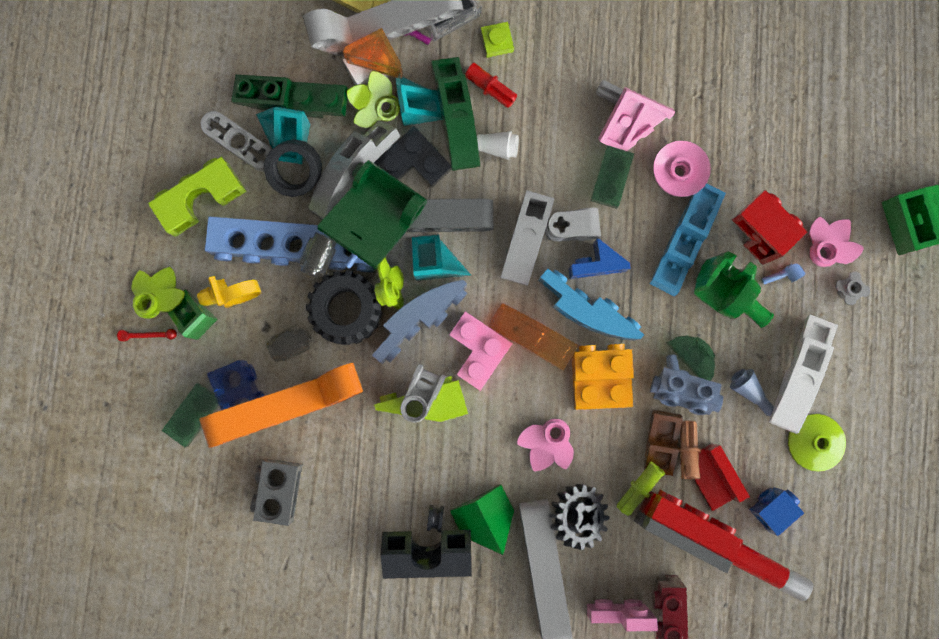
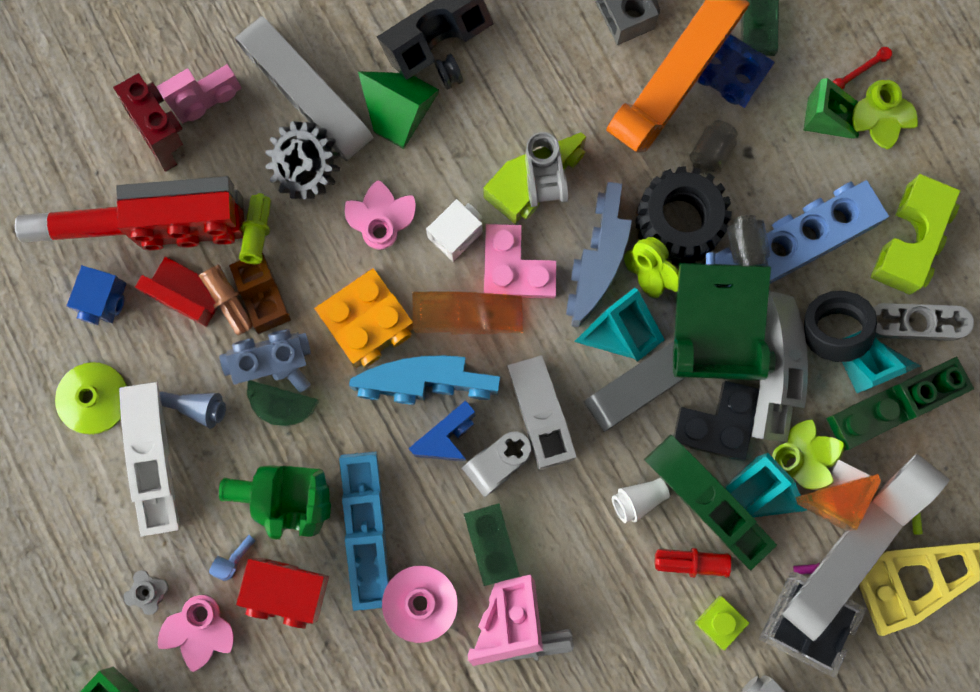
camera: 155 degrees right, 5 degrees down
(220, 294) = (817, 150): yellow piece -> none
(503, 399) = (455, 229): none -> white brick

